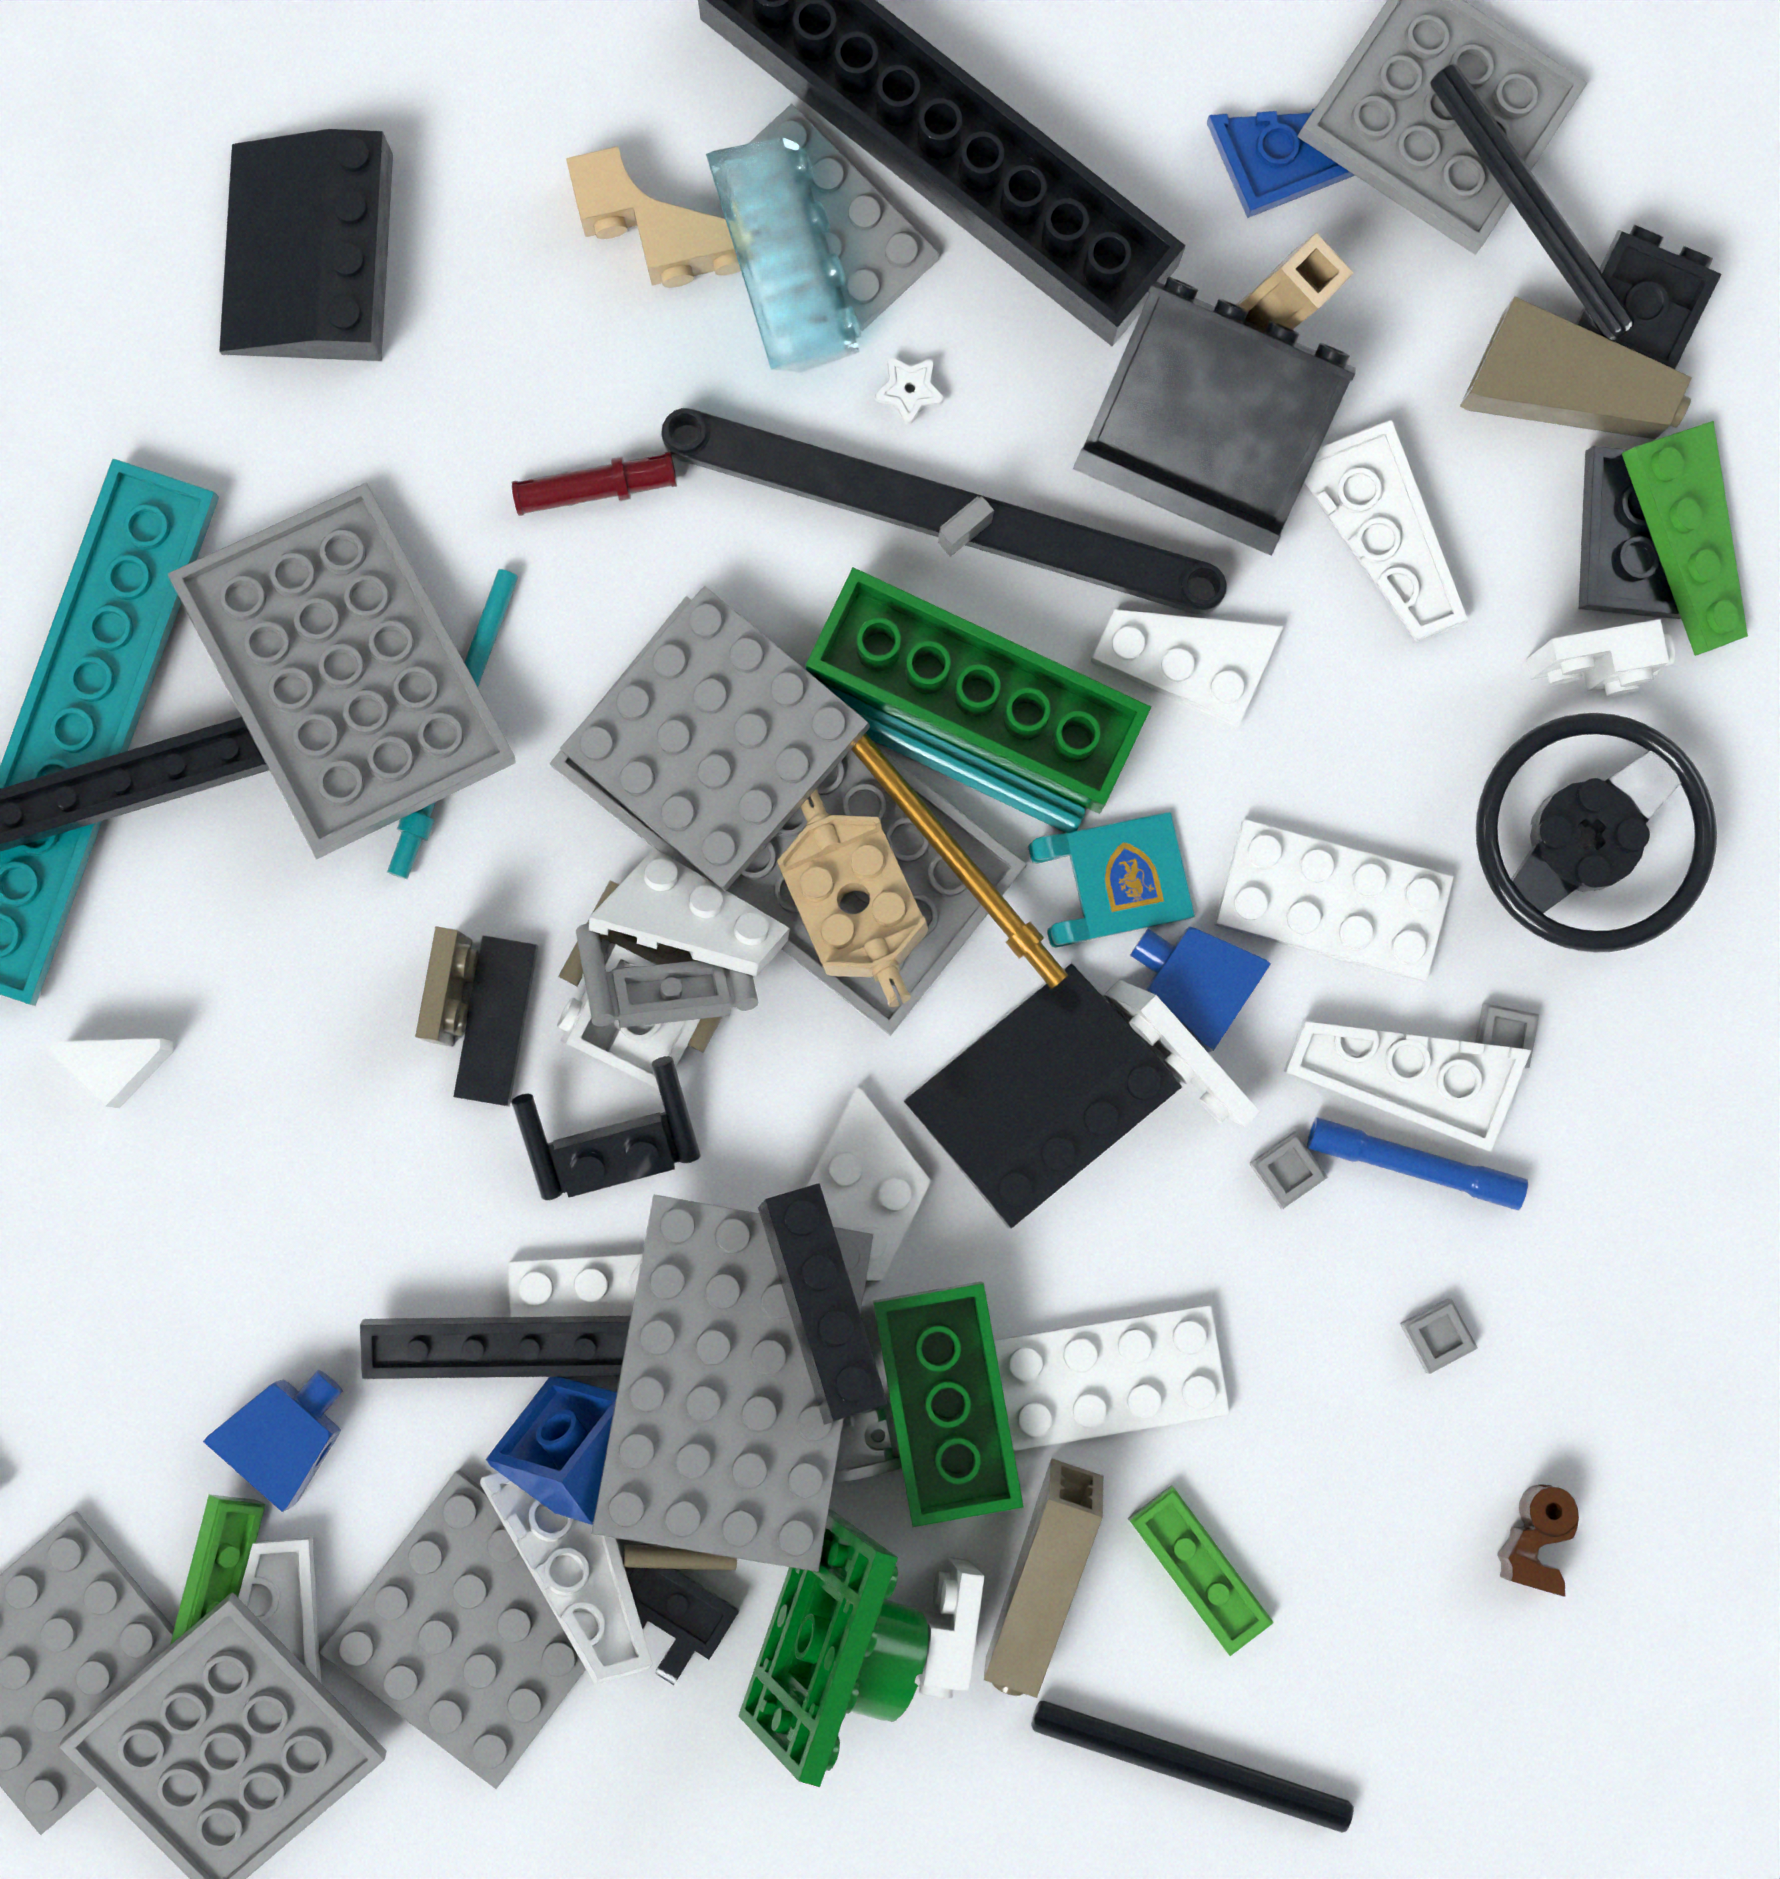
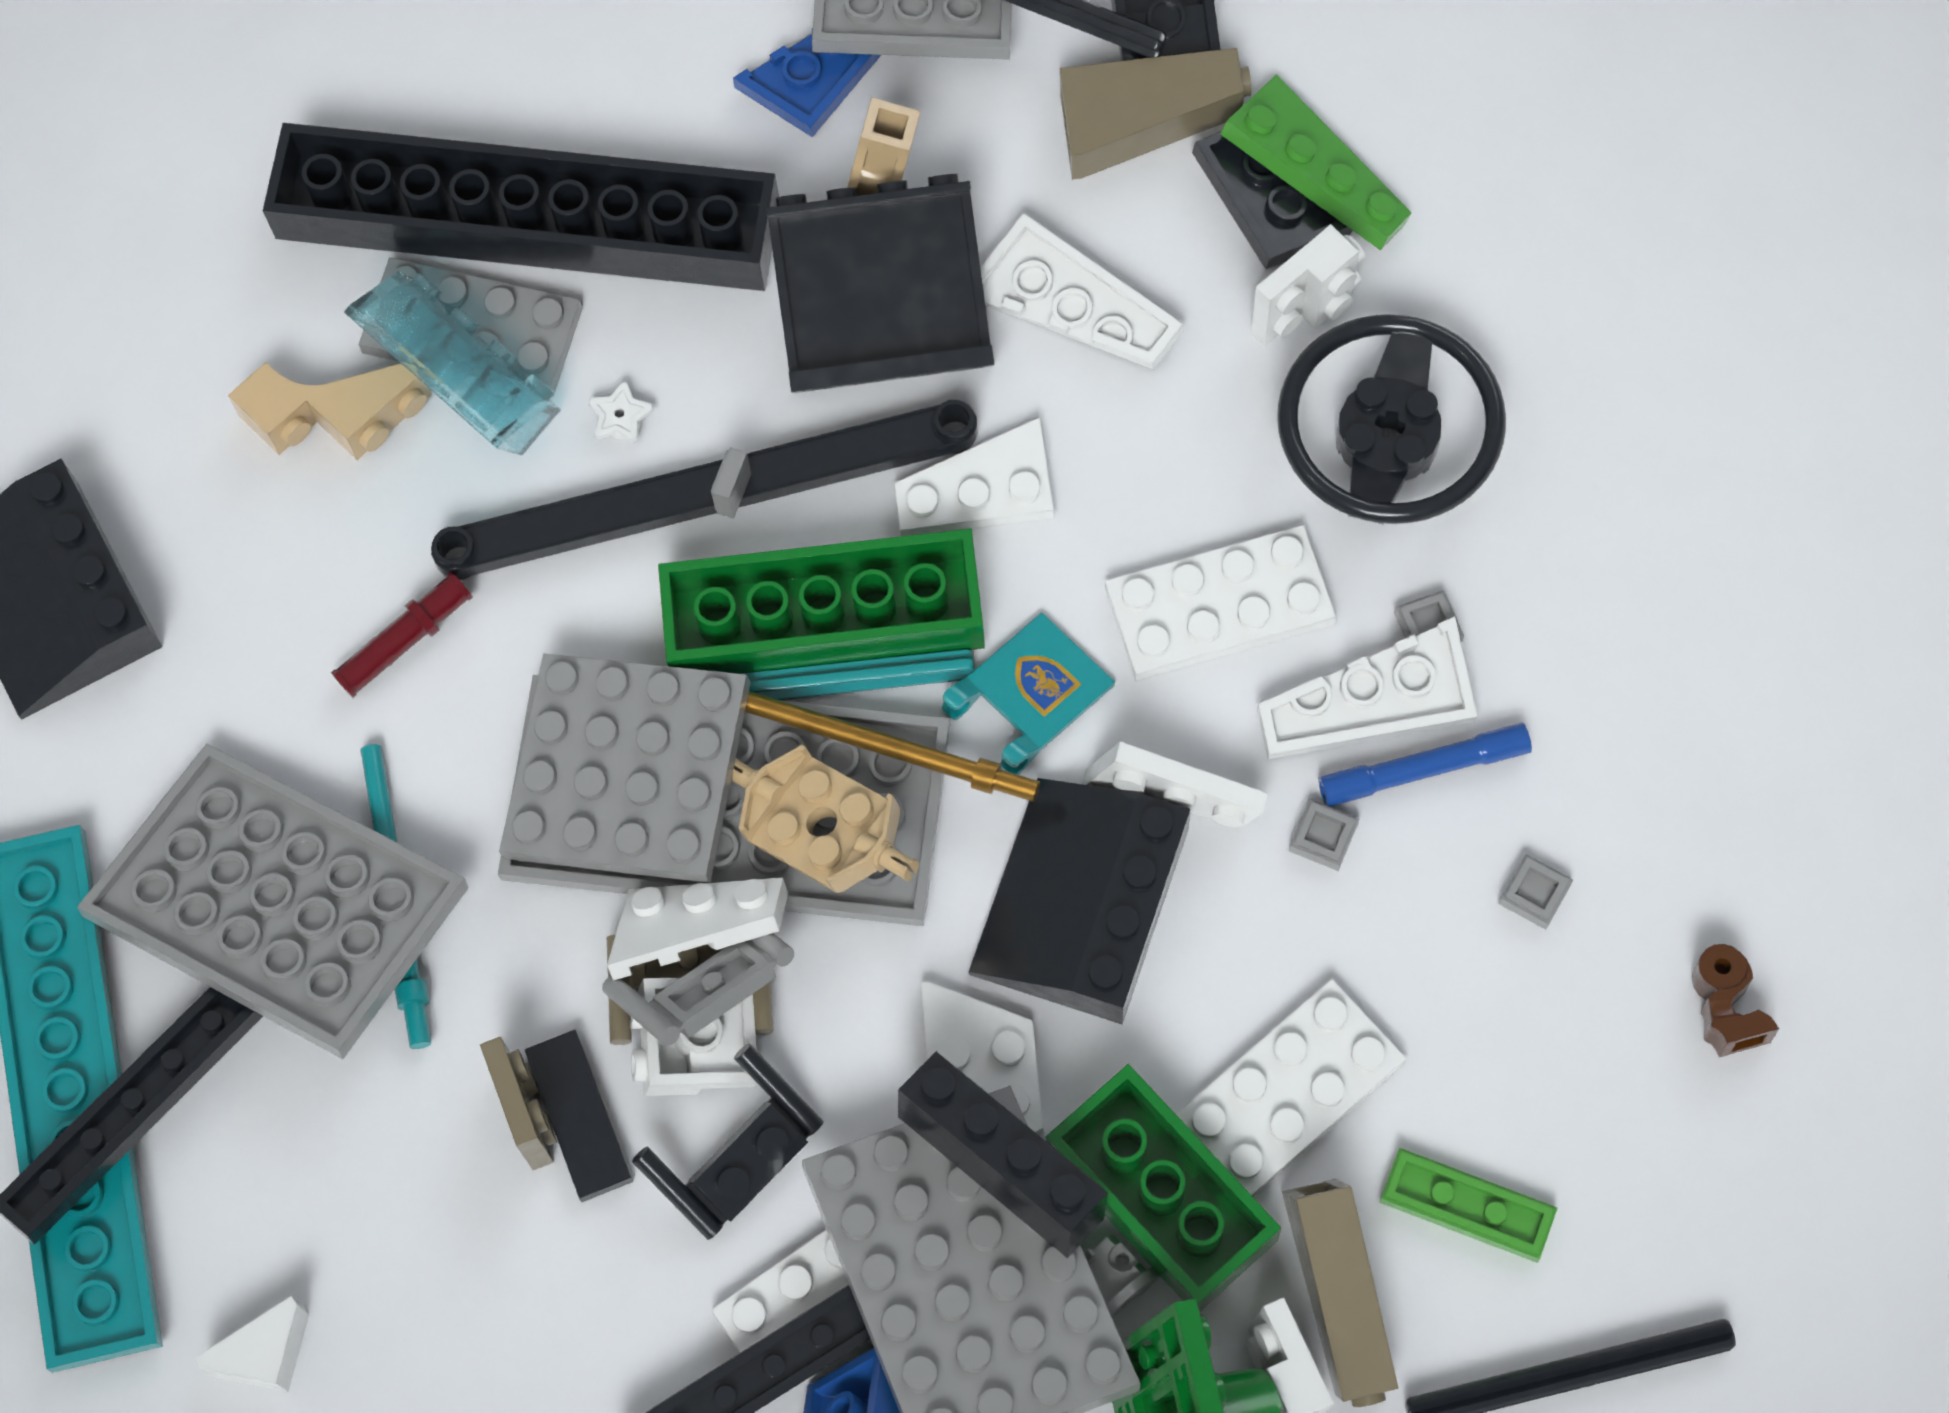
camera: 20 degrees left, 15 degrees down
(1200, 980) = (1151, 715): blue torso -> none

